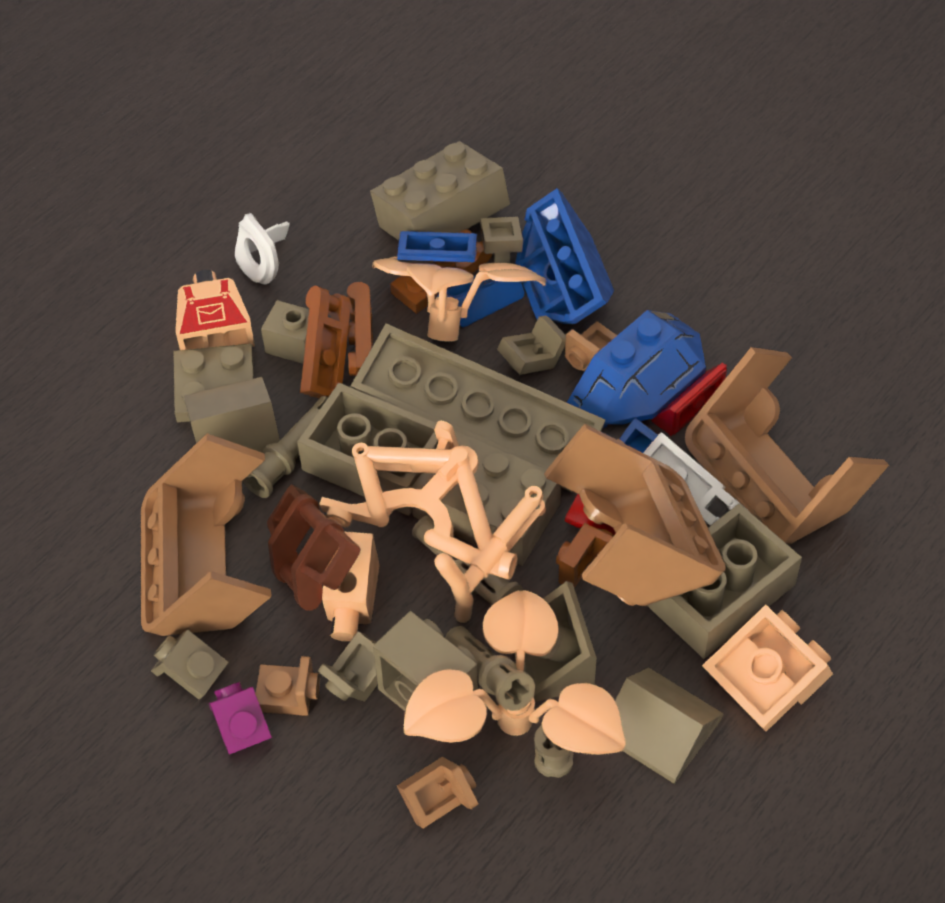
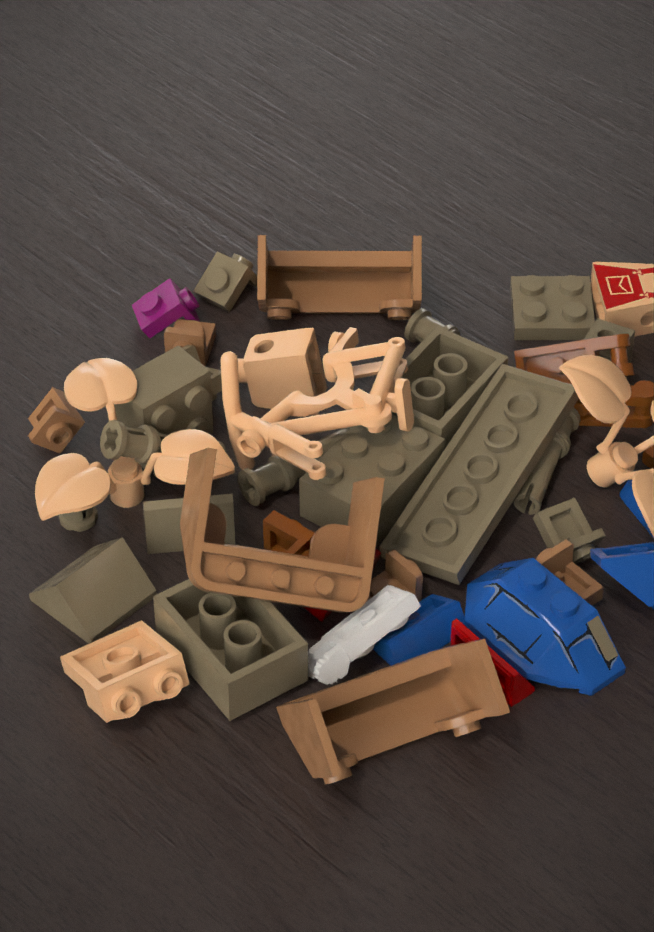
camera: 95 degrees right, 10 degrees down
(234, 413) = (489, 303): dark tan slope -> none
(304, 573) = (297, 316): copper bar -> none

